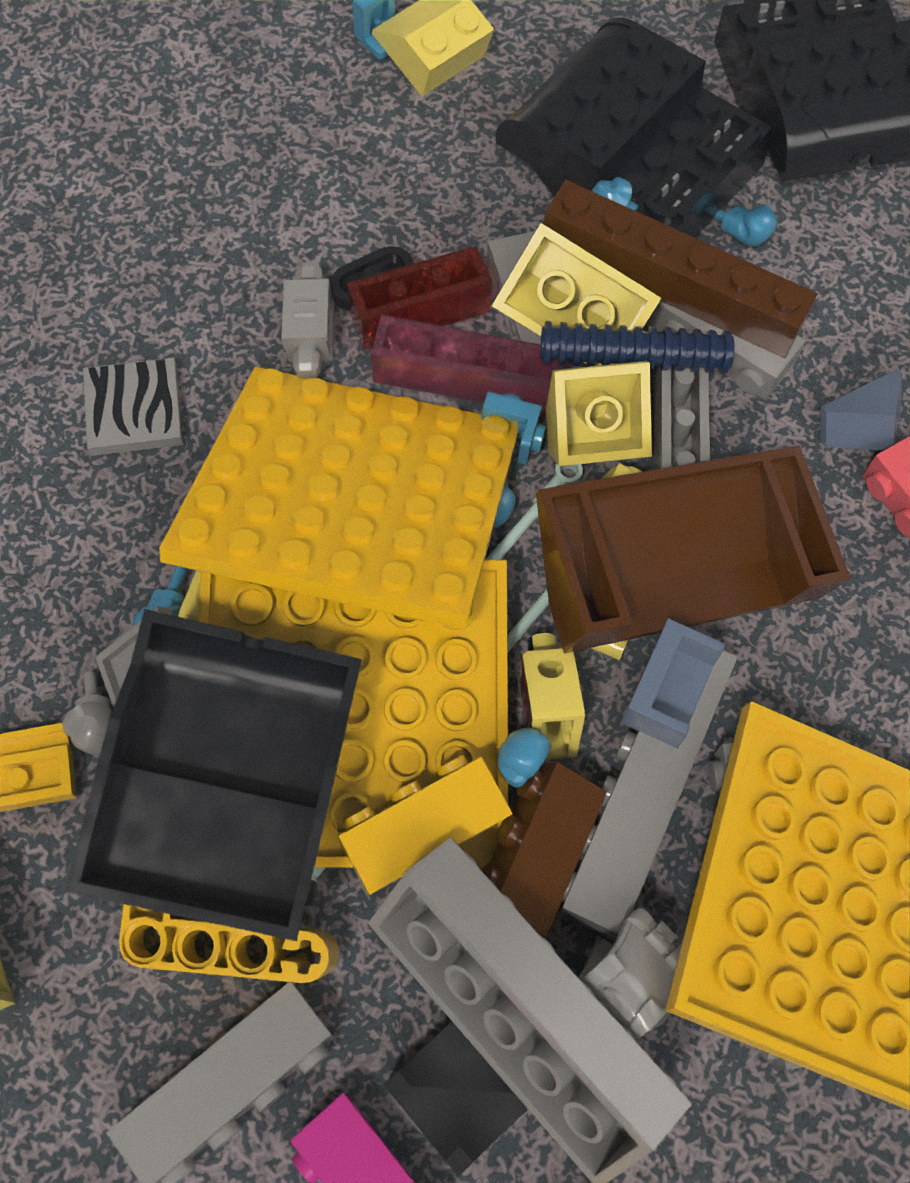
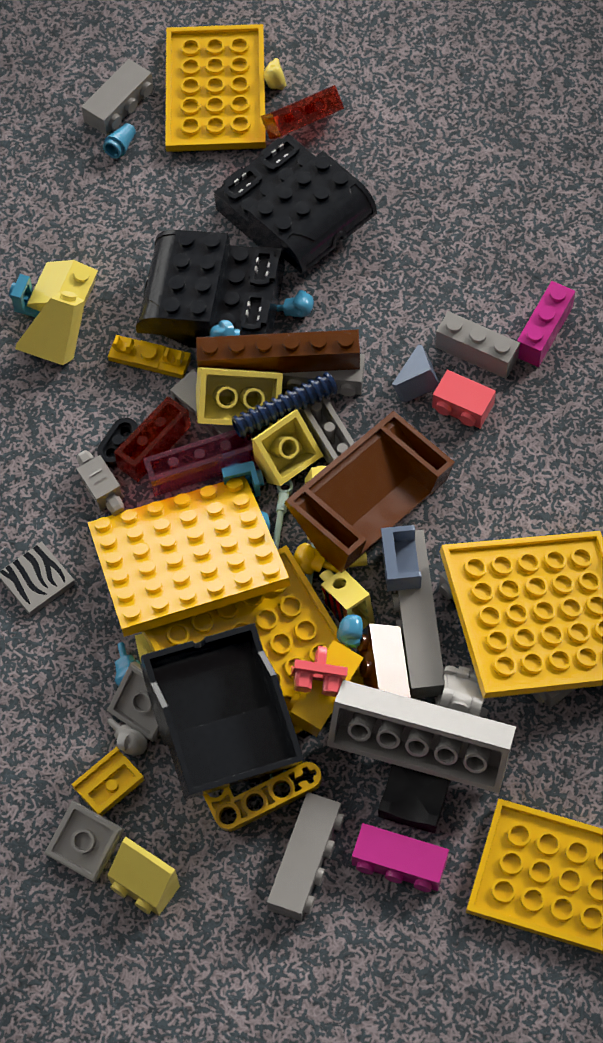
camera: 25 degrees left, 5 degrees down
(383, 75) = (55, 329): none -> light yellow slope
(436, 819) = (306, 671): none -> coral hips
(492, 184) = (149, 356): none -> yellow plate
(529, 602) = (311, 560): none -> yellow piece

